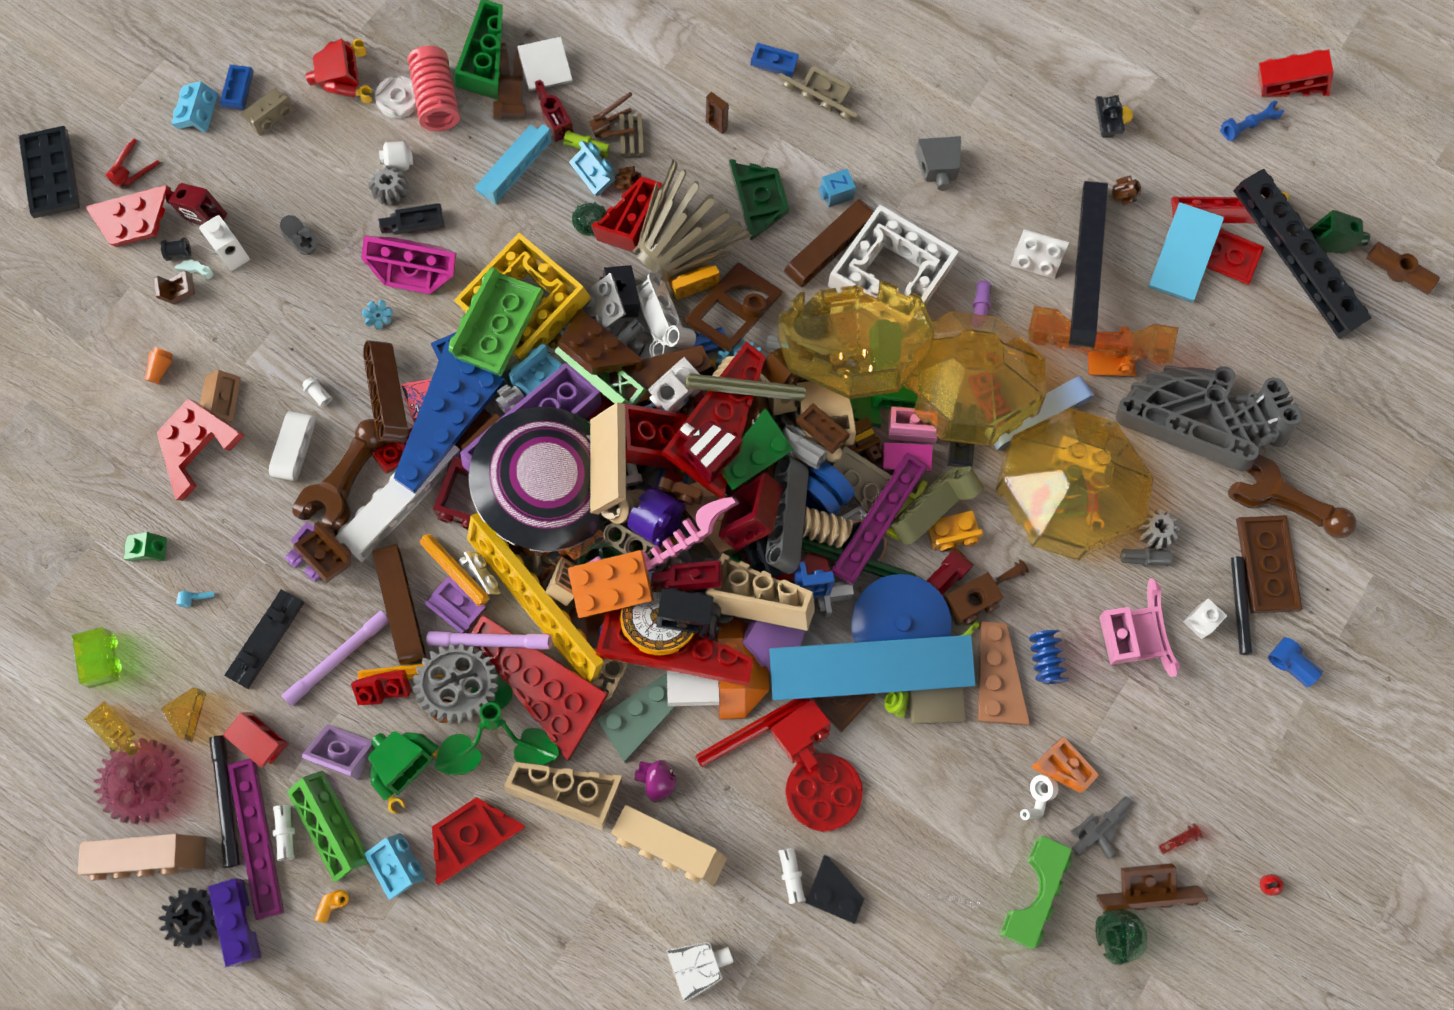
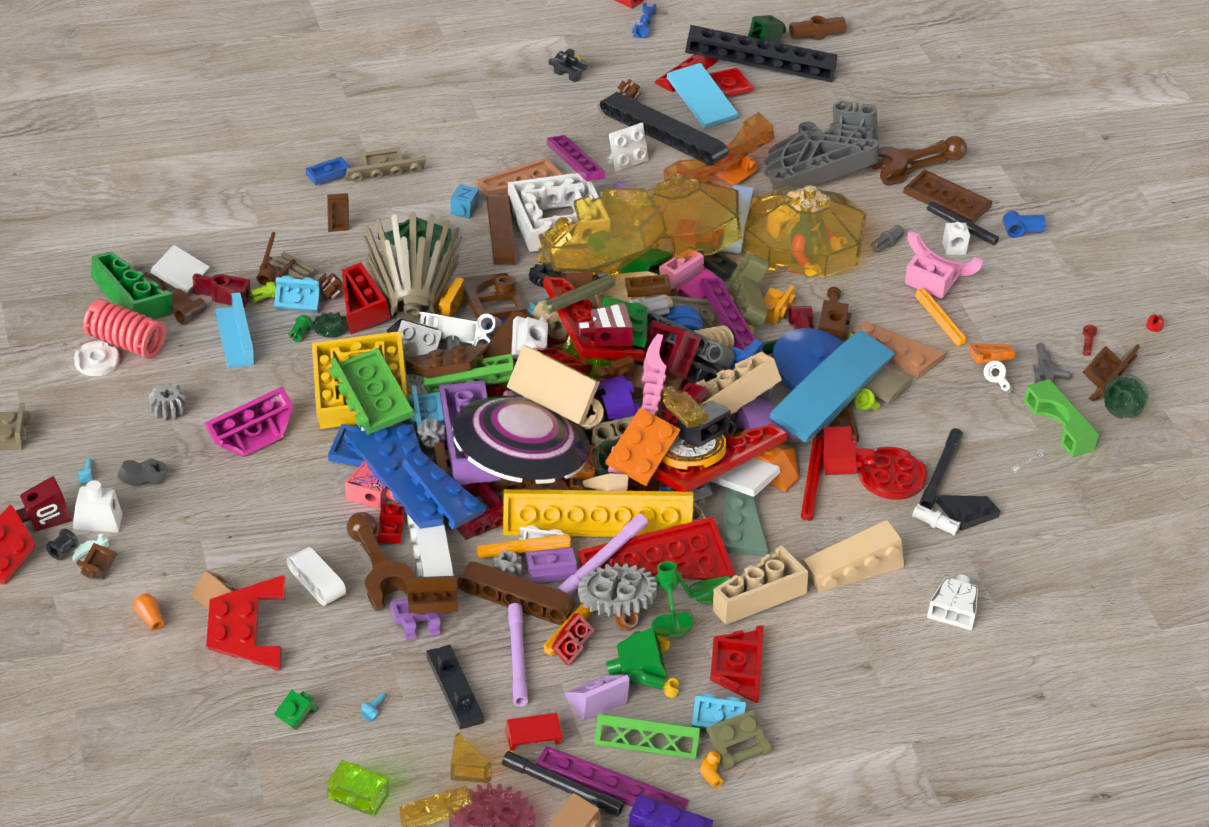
camera: 50 degrees left, 30 degrees down
(265, 201) = (85, 474): none -> medium azure hand
(284, 832) = (626, 761): white pin -> none
(315, 389) = (287, 538): white pin -> none
(337, 69) = (36, 368): red torso -> none
(377, 314) = (267, 468): medium azure plant -> none
(379, 897) = (734, 732): none -> olive plate
(385, 392) = (350, 493): reddish brown beam -> none
(397, 155) = (147, 380): white head -> none
(413, 219) = (213, 406): black hinge -> none
(422, 566) = (508, 562): none -> light grey gear
(437, 472) = (447, 493): none -> blue wing
(564, 200) = (302, 324): none -> green pin
(659, 779) = (801, 537): magenta piece -> none
(670, 586) = (684, 407): none -> clear yellow hinge
(906, 818) = (931, 491): none -> black piece
(918, 206) = (498, 183): none -> nougat wing
(939, 159) = (503, 148): dark grey torso -> none
(974, 227) = (576, 158): none -> magenta tile
(1047, 657) = (908, 316): blue piece -> none
(1080, 683) = (940, 317): none -> light orange axle
(1164, 524) = (877, 220): light grey gear -> none

